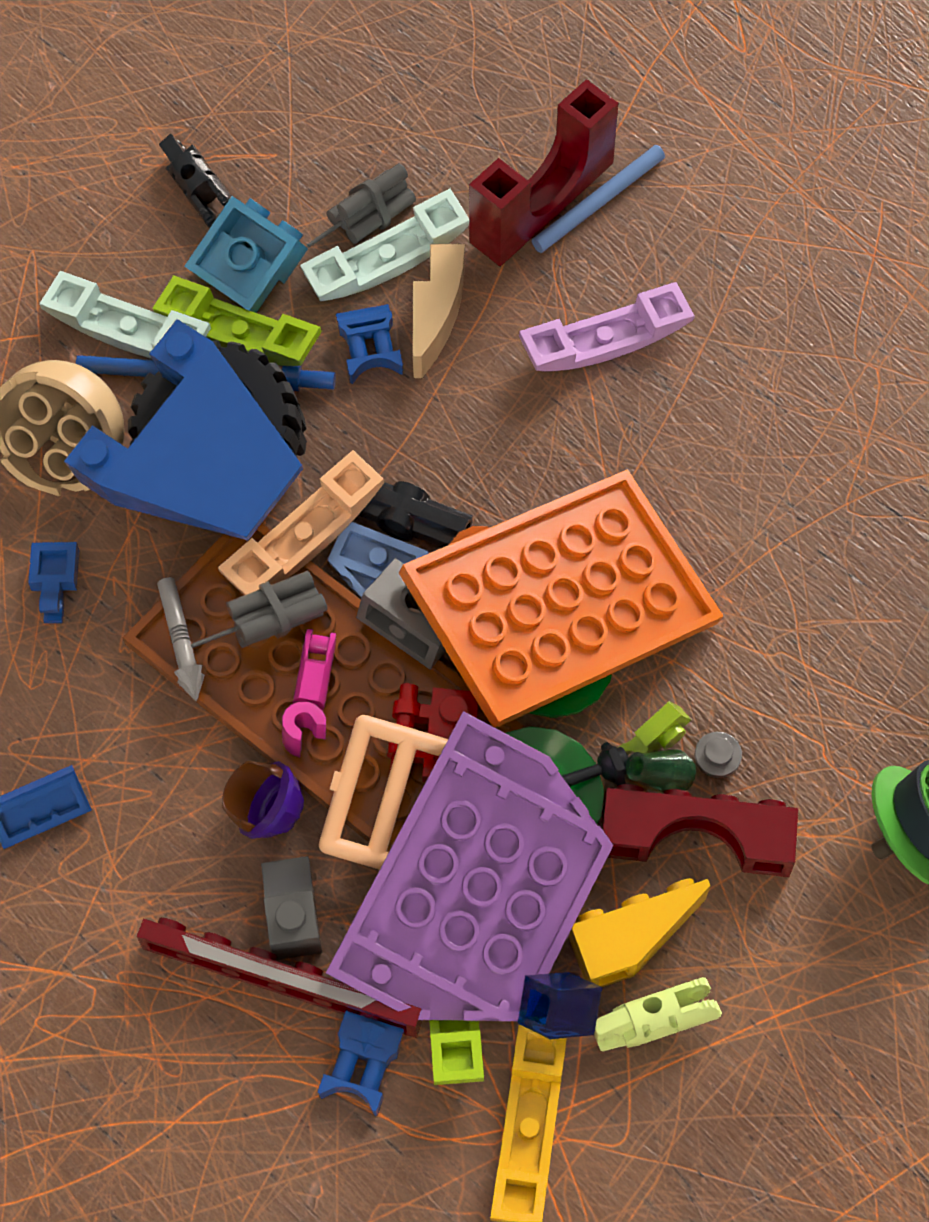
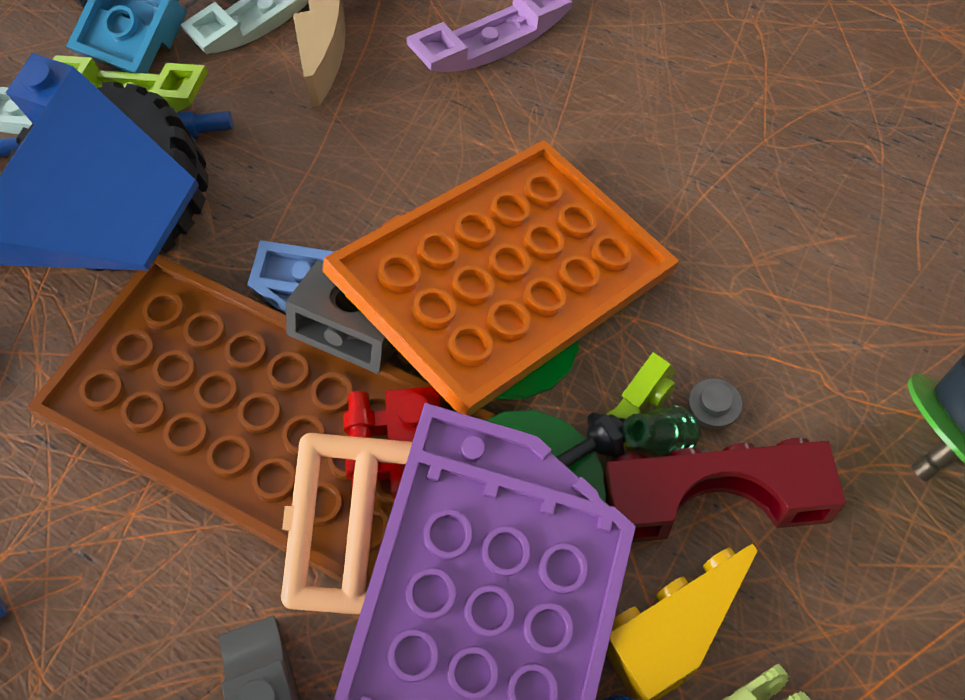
camera: 10 degrees left, 5 degrees down
(189, 672) = (102, 426): light grey piece -> none
(263, 799) = (208, 558): piece -> none
(273, 610) = (189, 343): dark grey piece -> none
(308, 529) = (218, 258): light nougat slope -> none
(309, 693) = (244, 426): dark pink piece -> none
(366, 324) = (250, 68): blue piece -> none
(409, 512) = (317, 222): black piece -> none

